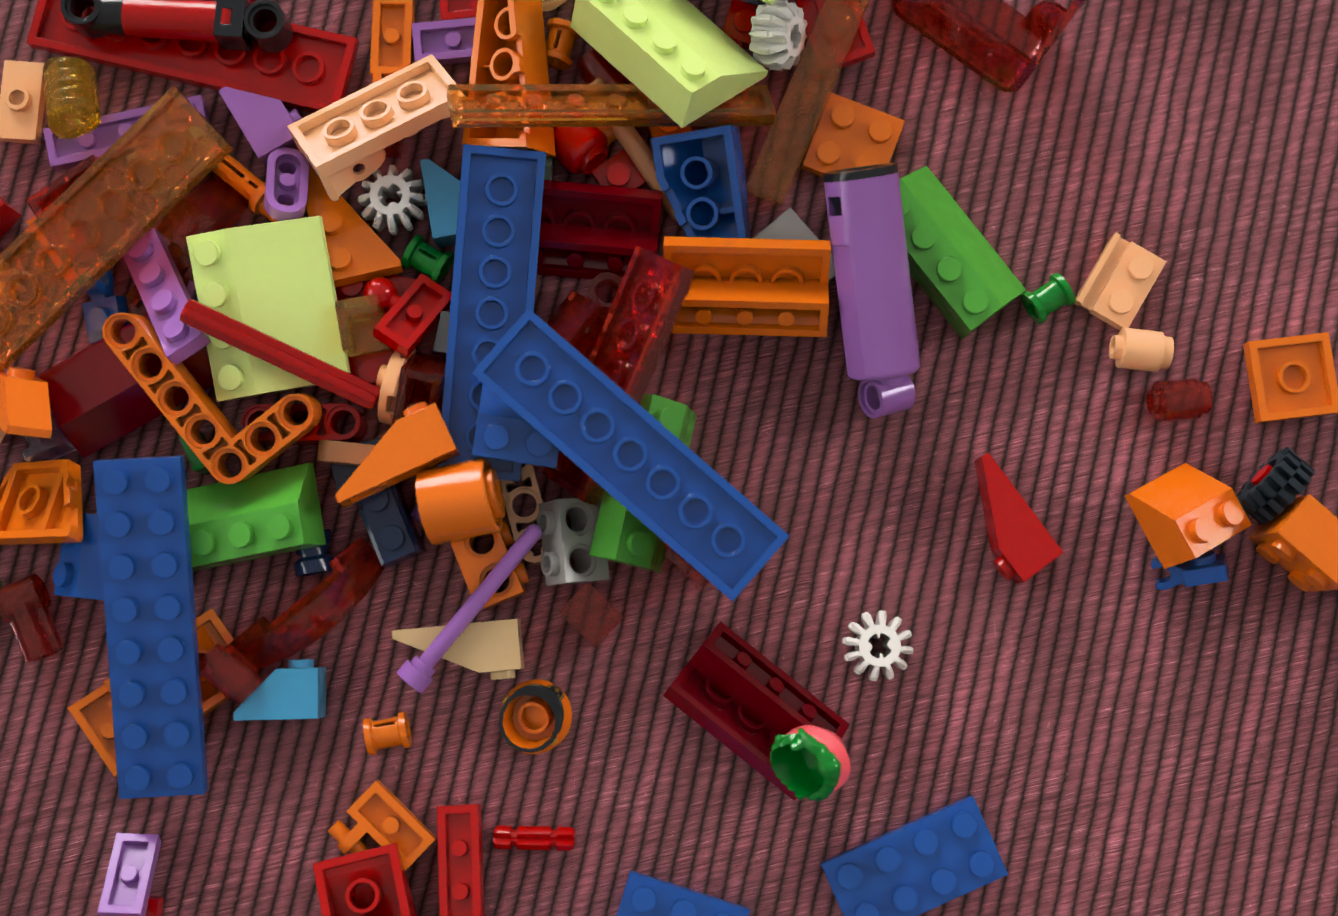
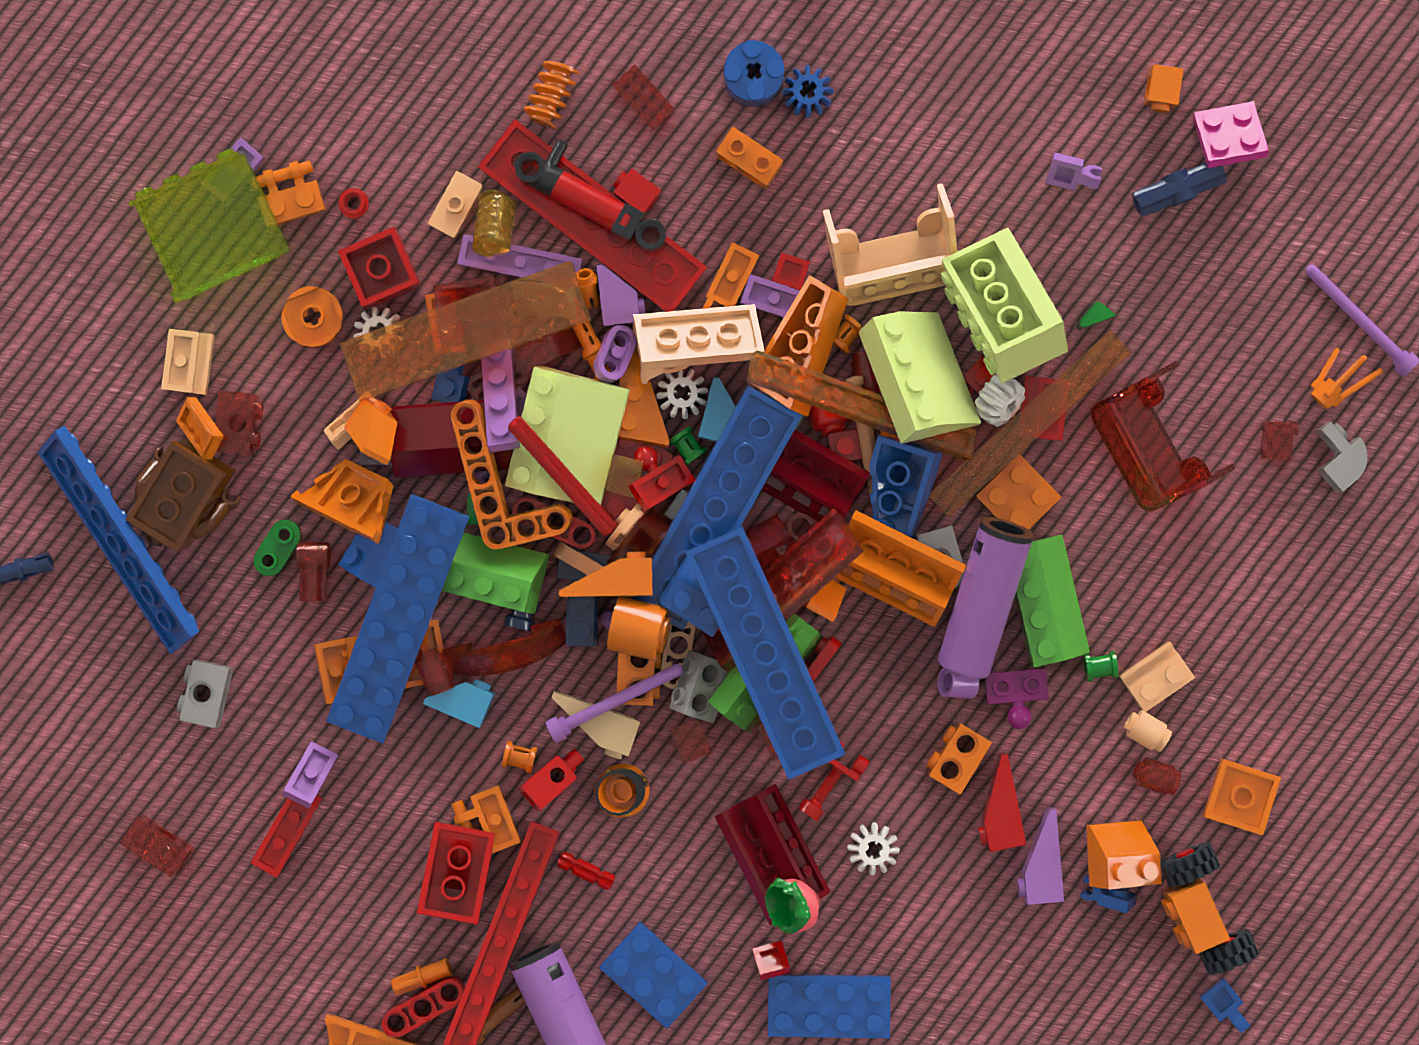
camera: 25 degrees right, 5 degrees up
(218, 117) = (587, 281): none -> orange pin
(433, 761) = (541, 790): none -> red torso
(677, 365) = (827, 600): none -> orange slope
(706, 430) = (825, 651): none -> red plate
(779, 627) = (813, 806): none -> red bar
(816, 844) = (771, 960): none -> red plate
(939, 488) = (965, 761): none -> orange brick
(960, 372) = (1017, 688): none -> magenta plate
(1094, 571) = (1042, 868): none -> medium lavender slope

